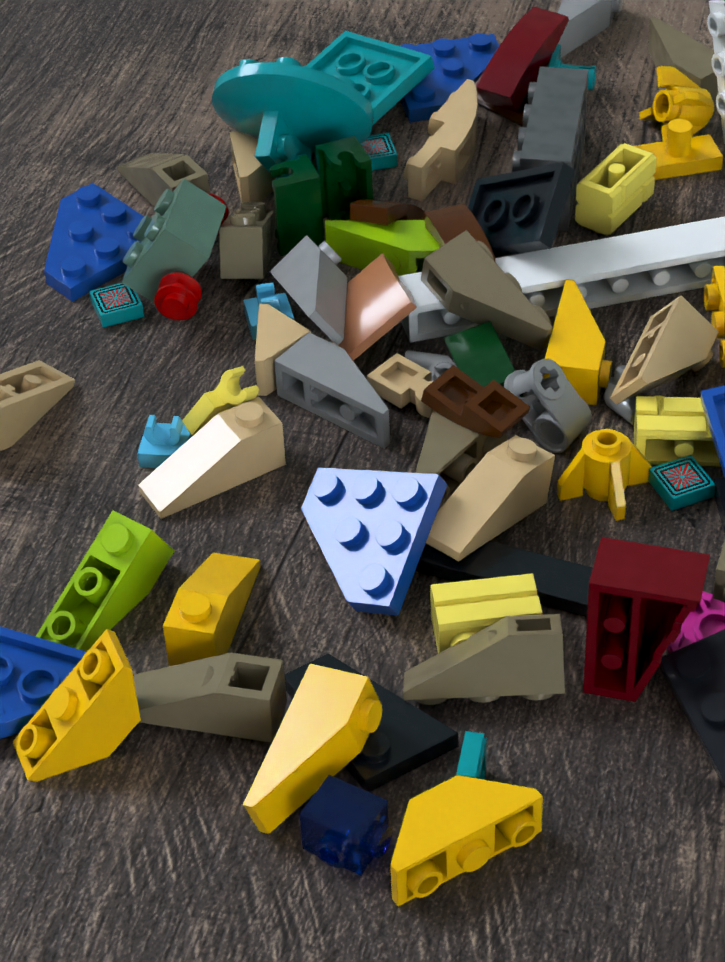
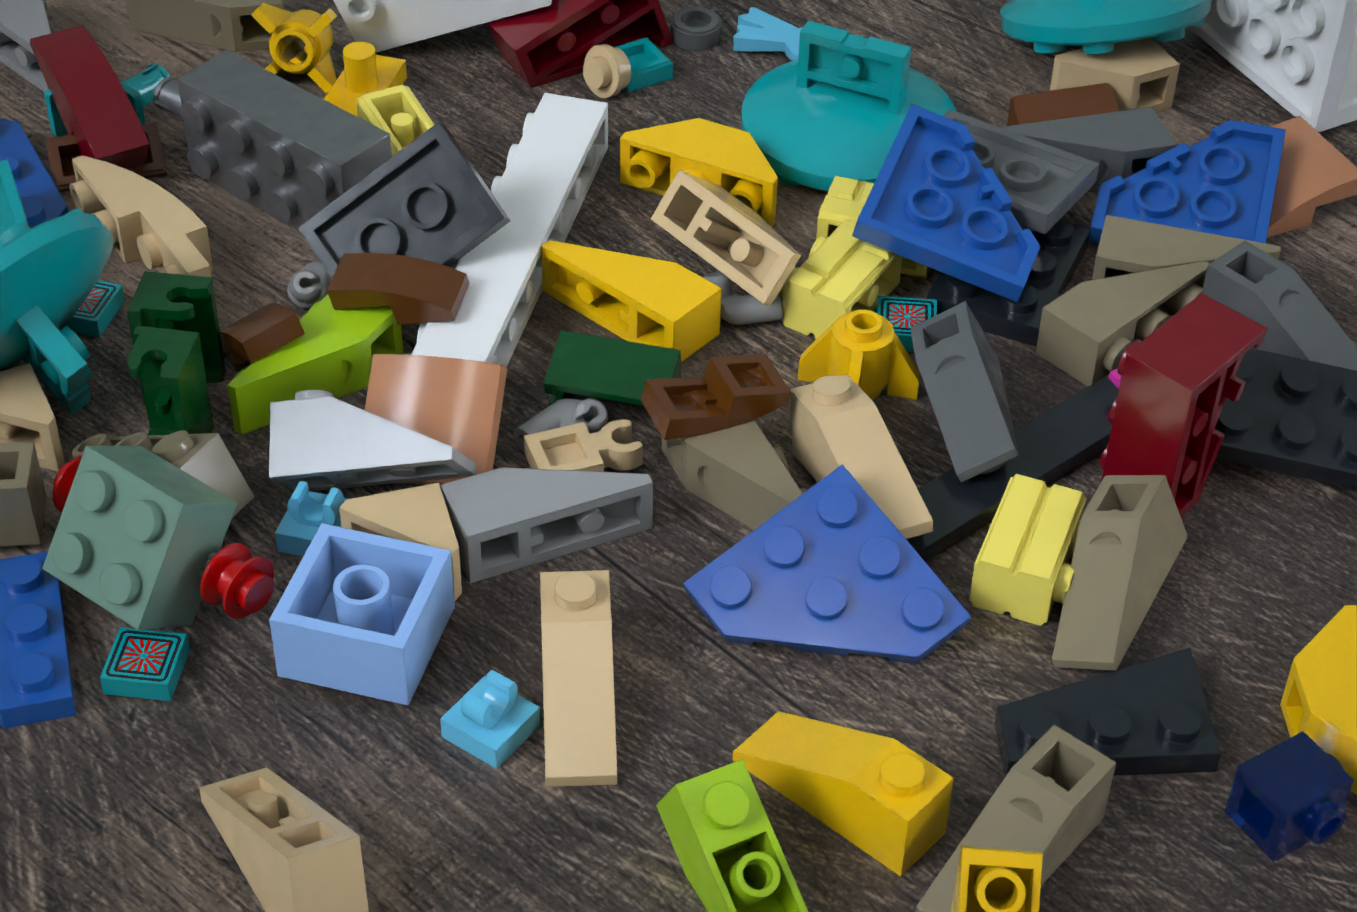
camera: 65 degrees left, 0 degrees up
(188, 350) = (363, 613): none -> light blue brick
(224, 397) = (497, 627): light yellow plate -> none
(316, 739) = (1172, 760): yellow slope -> none
(473, 756) = (1258, 657): teal tile -> none
(477, 289) = (520, 306): dark tan slope -> none
(555, 410) = (726, 335): light grey piece -> none
(622, 508) = (965, 391): none -> dark grey slope

